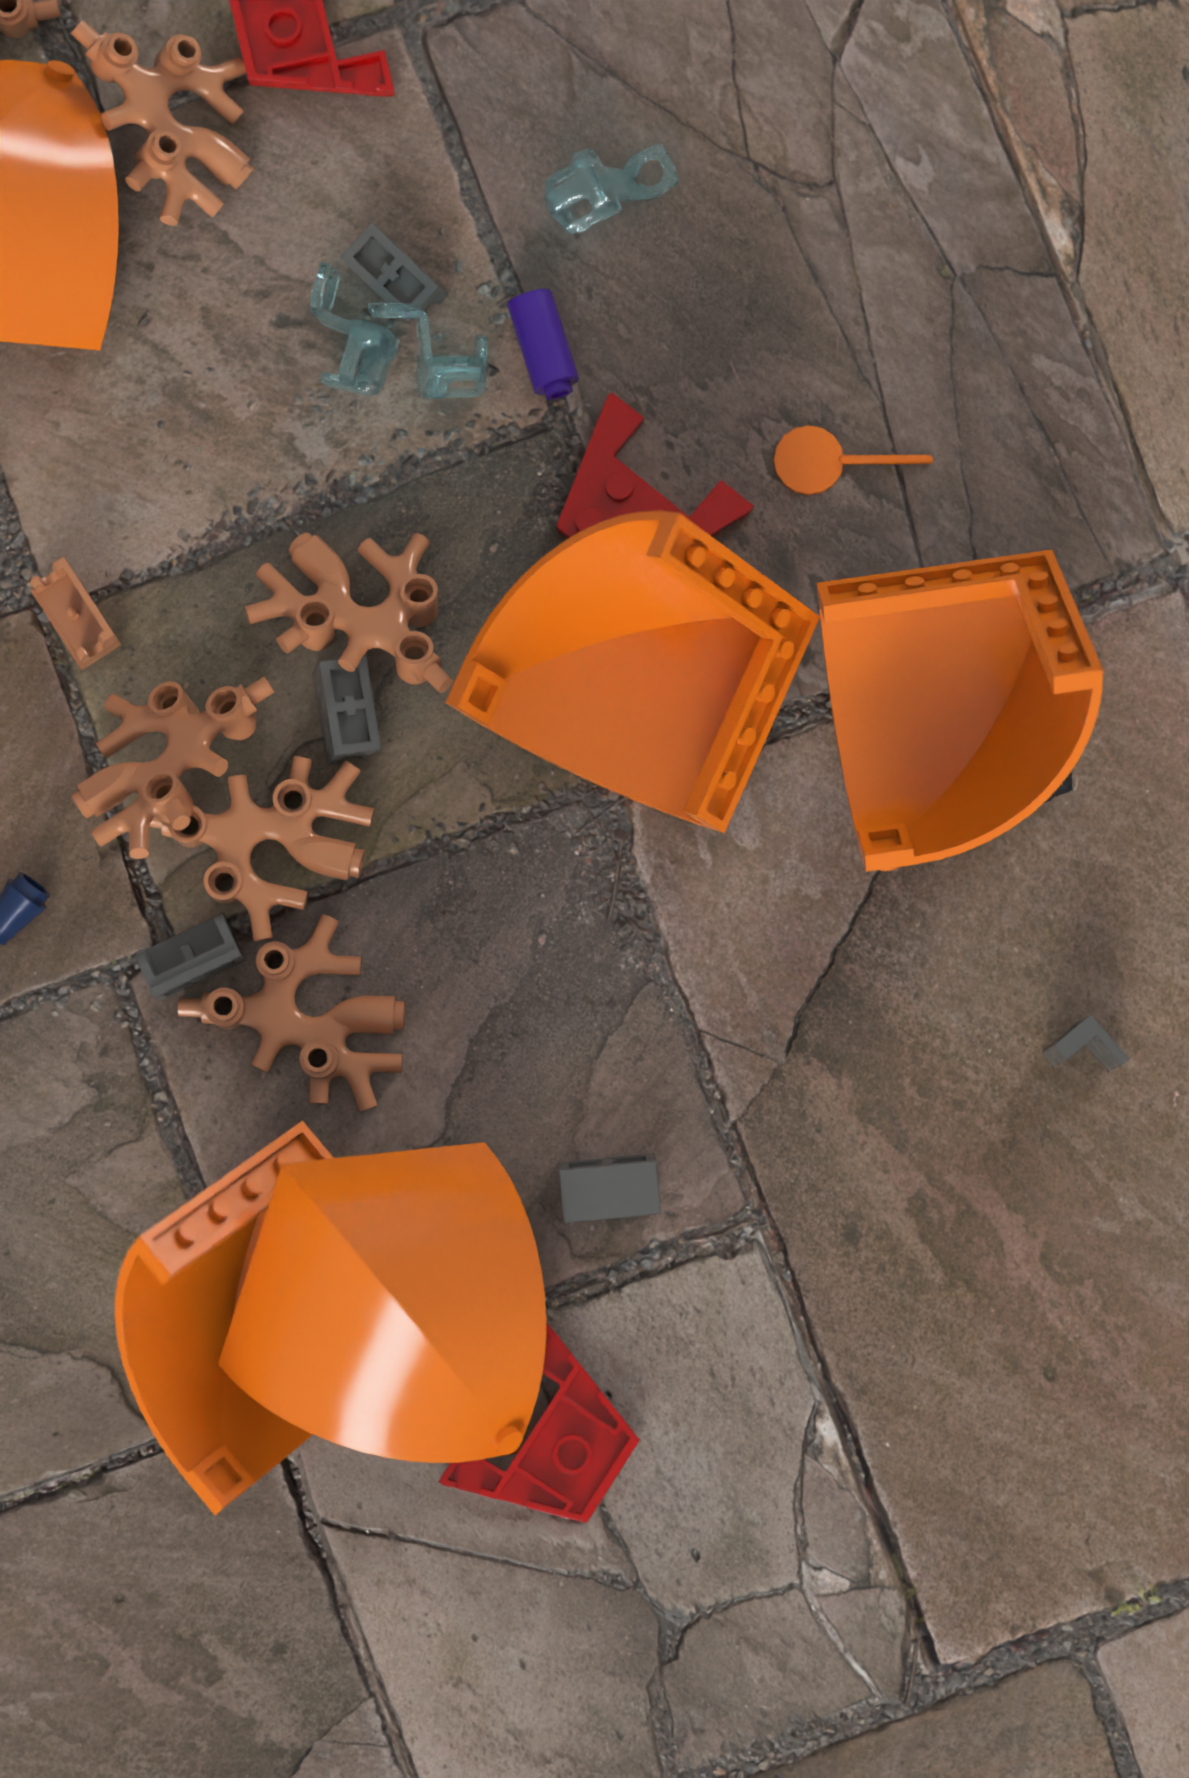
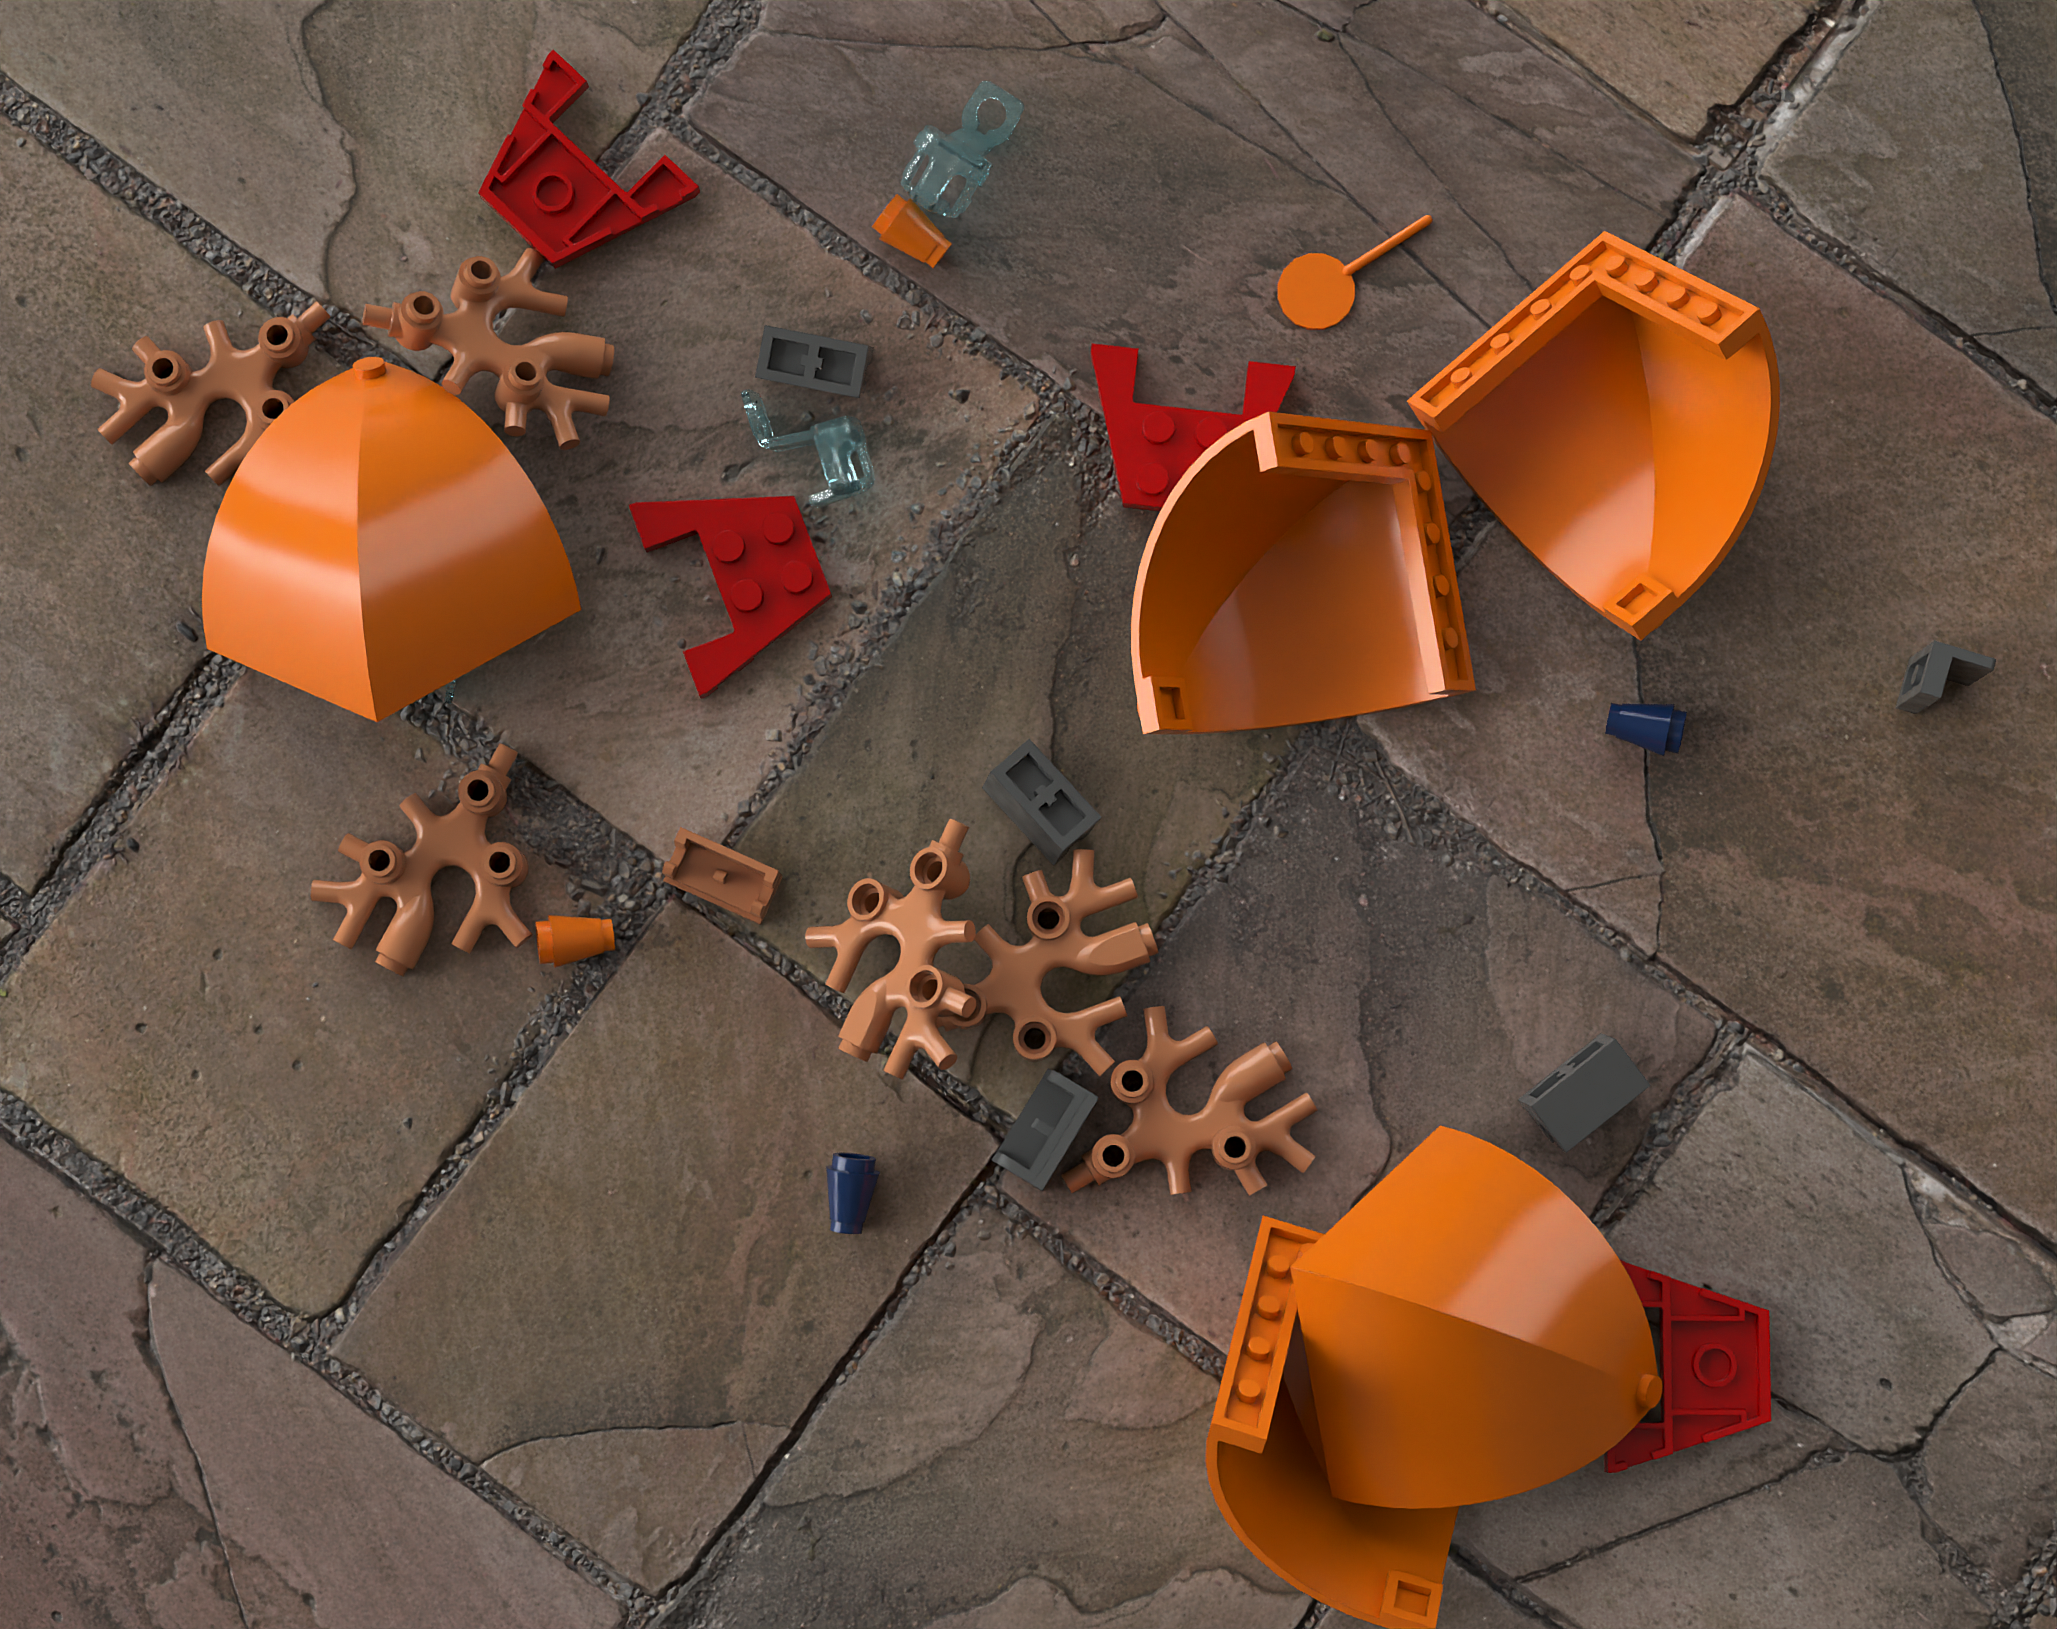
camera: 30 degrees left, 0 degrees up
(255, 402) = (760, 566): none -> red wing
(383, 626) = (1027, 700): nougat plant -> none
(437, 371) = (919, 427): clear light blue piece -> none
(531, 223) = (911, 231): none -> orange cone
(543, 343) = (998, 338): dark purple brick -> none
(841, 945) = (1648, 726): none -> dark blue cone

